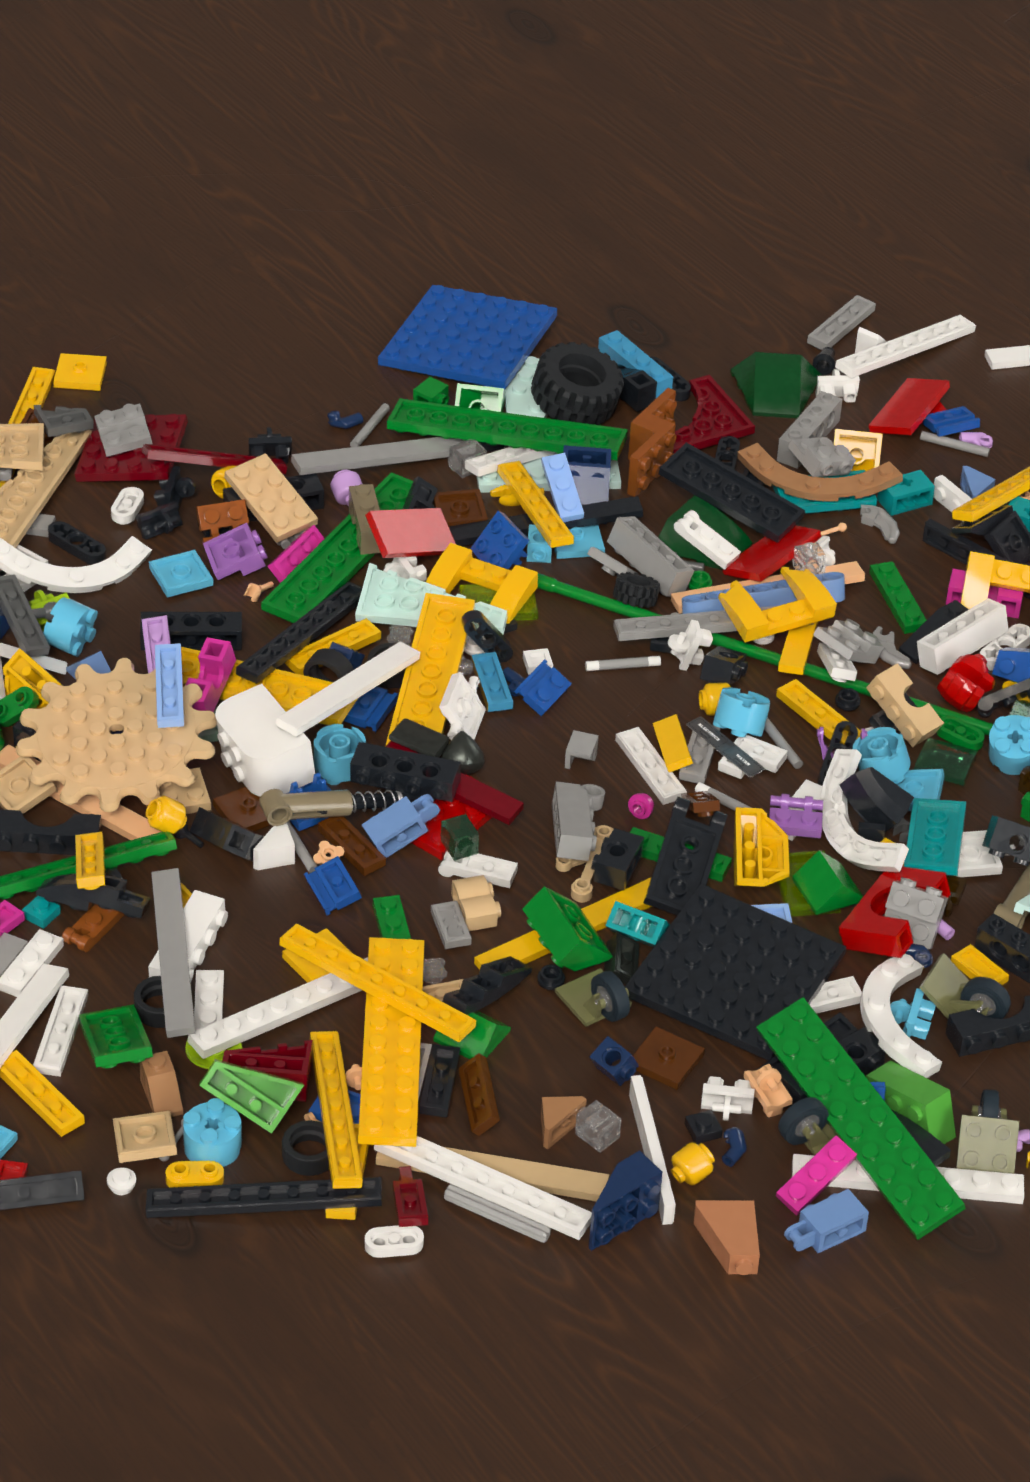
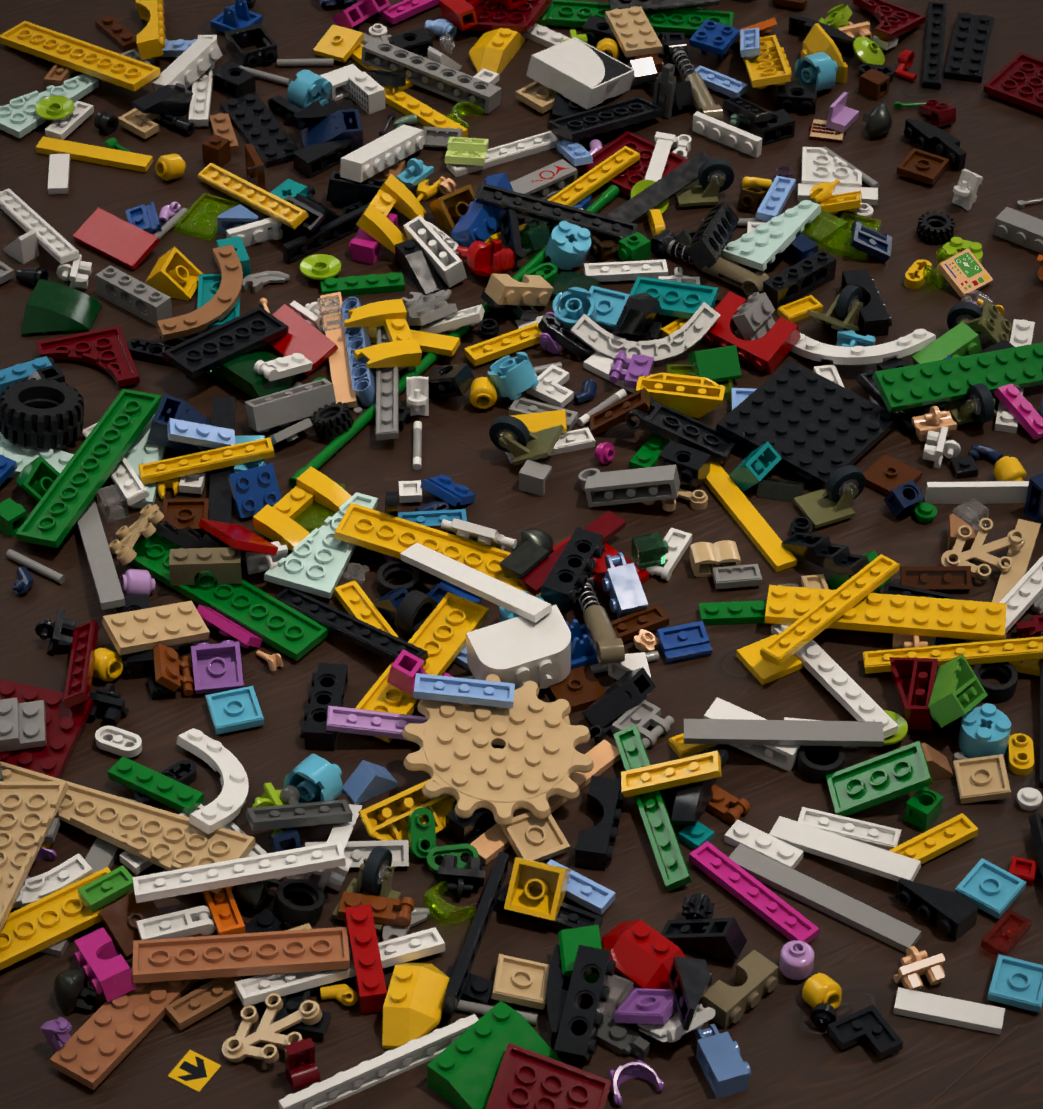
camera: 80 degrees left, 0 degrees up
(62, 530) = (155, 785): none -> green plate
(91, 1085) = (923, 808): none -> green brick
(159, 520) = (143, 712): black hips -> none
(166, 814) = (603, 736): yellow head -> none
(202, 854) = (644, 715): none -> light grey plate
(448, 480) = (125, 552): none -> tan plant
(510, 1109) = (980, 552): none -> tan plant
(512, 507) = (192, 483): none -> white plate
(565, 931) = (763, 505): green slope -> none
(605, 1089) = (925, 512): none -> green plate
(630, 717) = (514, 437): none -> plate
(651, 441) = (133, 374): dark orange bracket -> none
(725, 746) = (542, 396): flat silver sticker -> none
(753, 788) = (588, 392): none -> dark blue arm
(822, 457) = (194, 284): light grey plate -> none
(911, 557) = (320, 266): none -> lime dish
(991, 464) = (202, 216): none -> clear neon green tile
(993, 795) = (626, 270): none -> white plate

